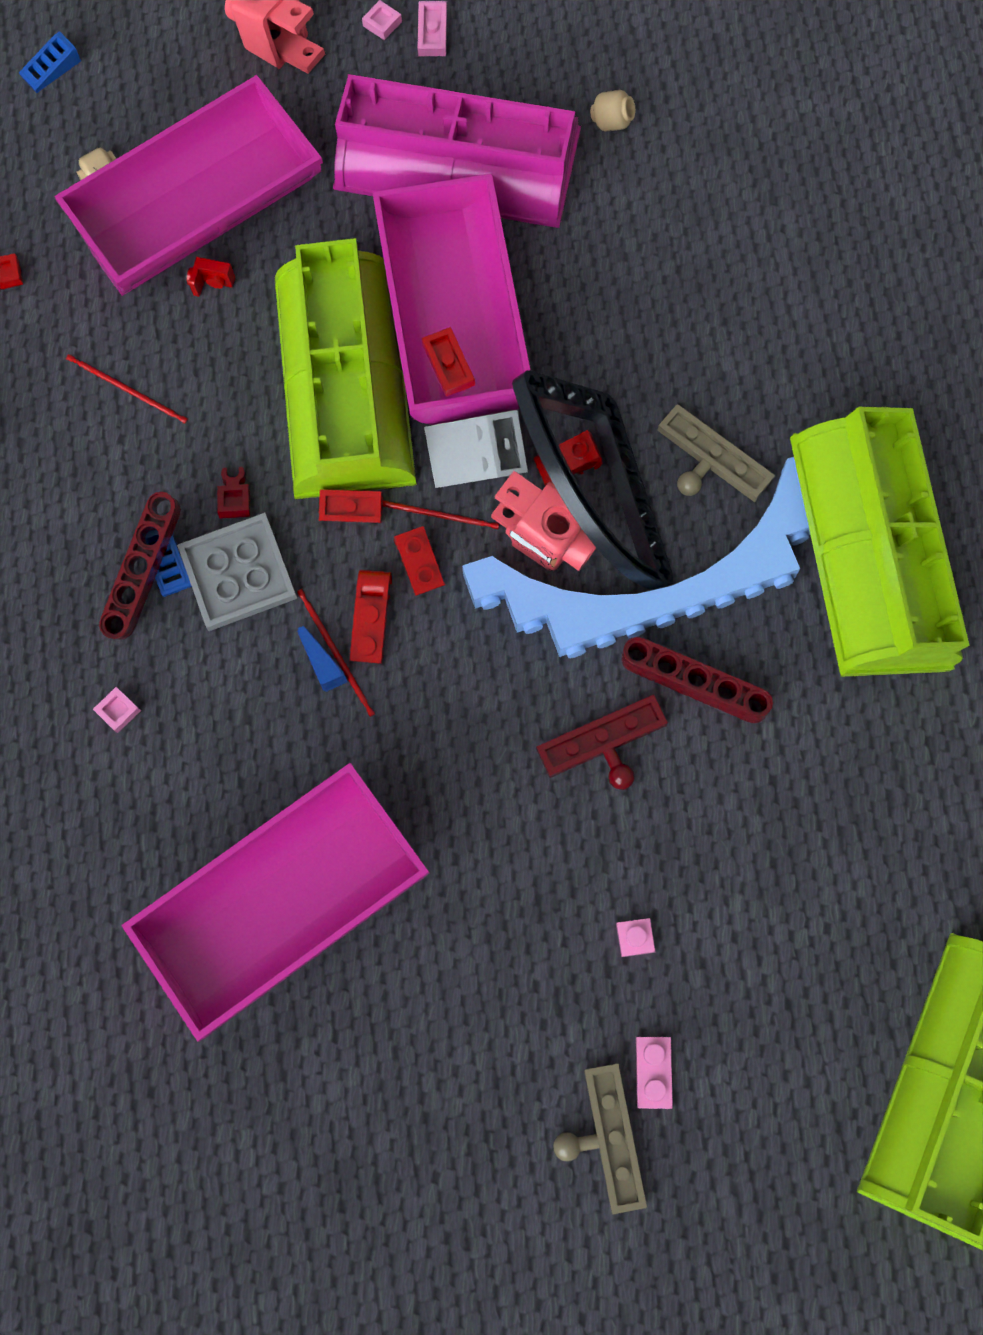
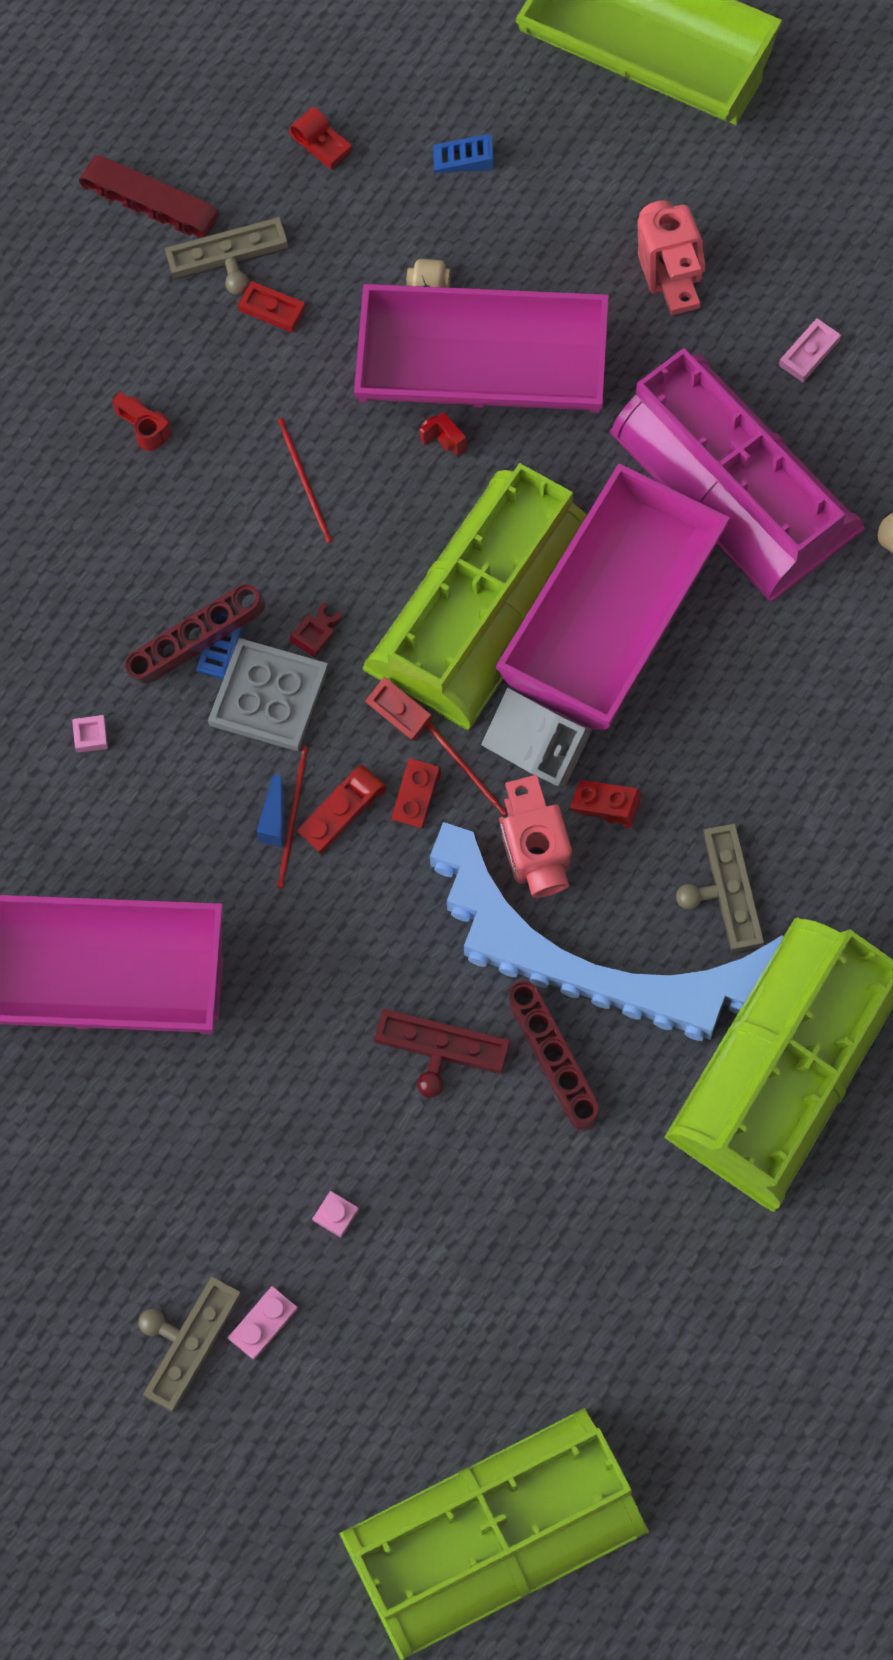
camera: 40 degrees right, 5 degrees down
(382, 20) = (773, 312): bright pink plate -> none
(448, 361) = (557, 648): red plate -> none
(540, 392) = (668, 788): black beam -> none

